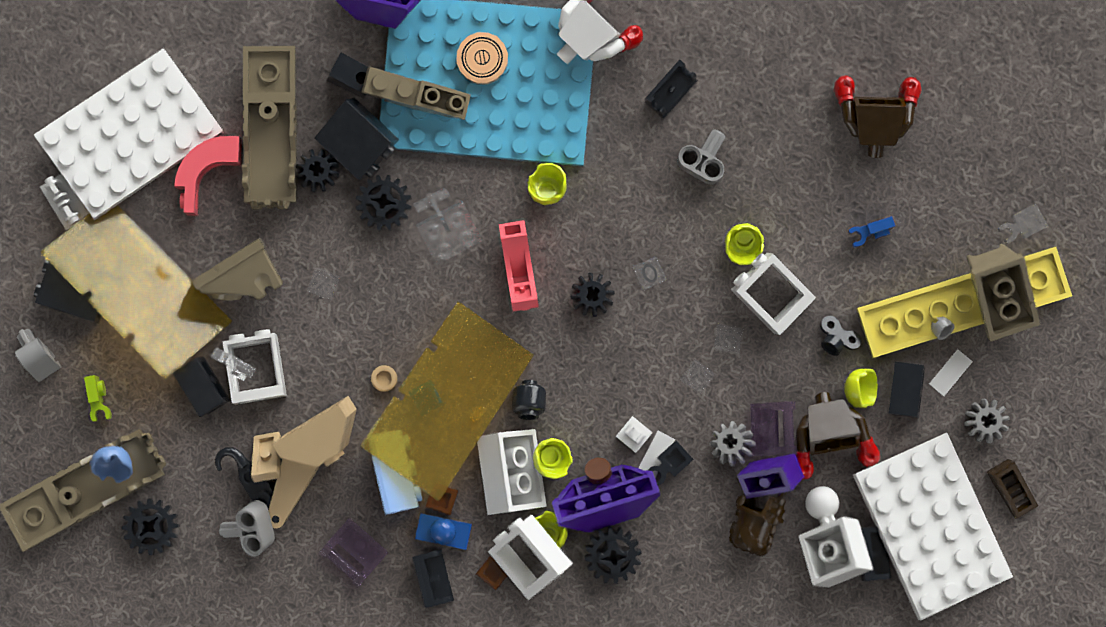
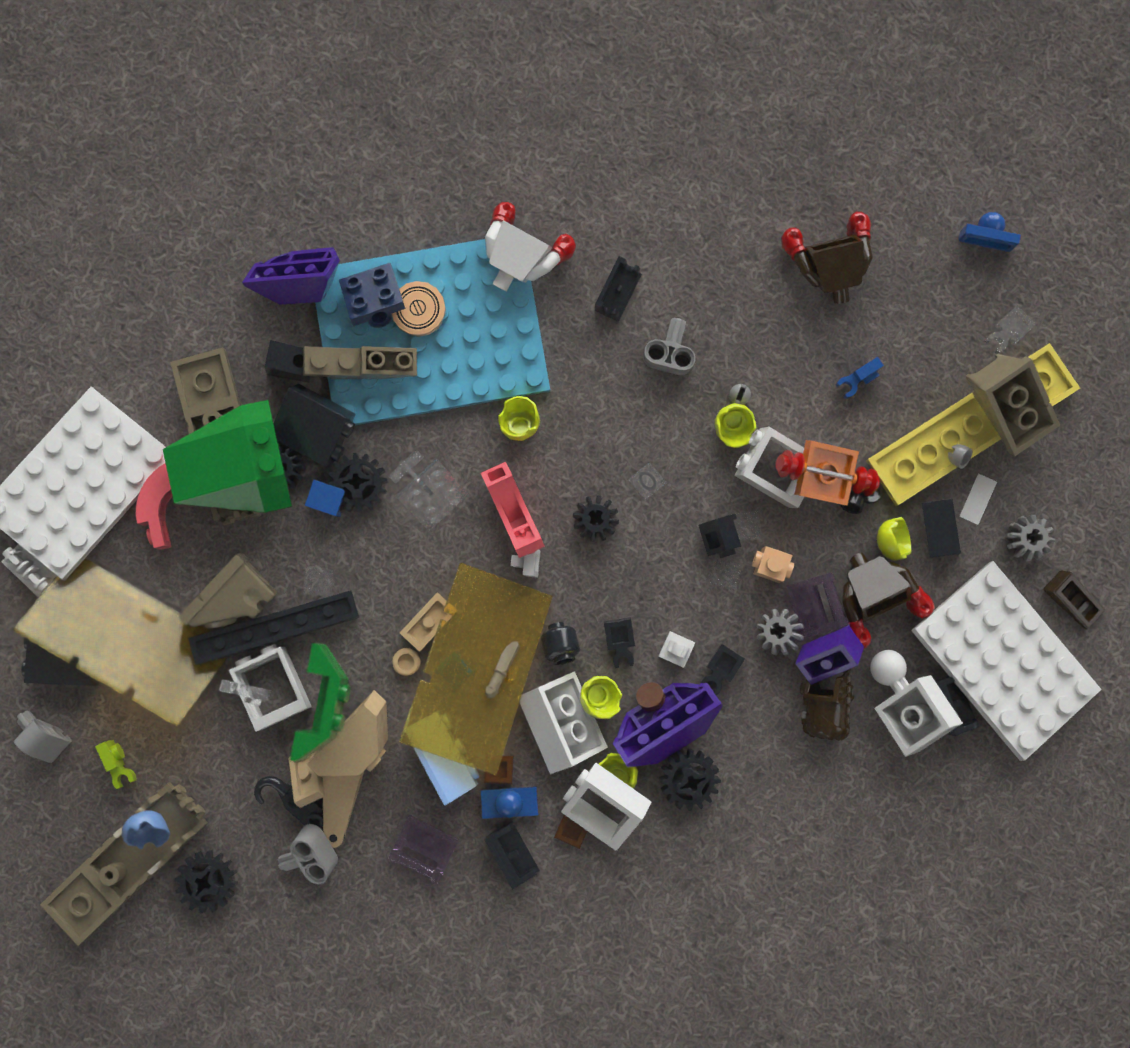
camera: 15 degrees left, 0 degrees up
(201, 386) = (220, 721): black hinge -> none
(272, 314) = (273, 628): none -> black plate
(275, 154) = (230, 463): none -> green wedge
(308, 395) = (329, 707): none -> green wedge
(351, 209) = (325, 498): none -> blue panel
(409, 349) = (425, 623): none -> tan plate
(443, 35) = (372, 296): none -> dark blue plate
(470, 407) = (501, 669): none -> dark tan piece
(520, 318) = (529, 563): none -> white tile
(584, 408) = (619, 637): none -> black plate
(659, 444) = (703, 655): white sticker -> none
(702, 341) = (720, 536): none -> black brick
(742, 380) = (772, 564): none -> light nougat brick
(762, 219) = (734, 392): none -> light grey hinge
(814, 310) = (827, 472): none -> orange plate
(1030, 129) = (990, 233): none -> blue tile

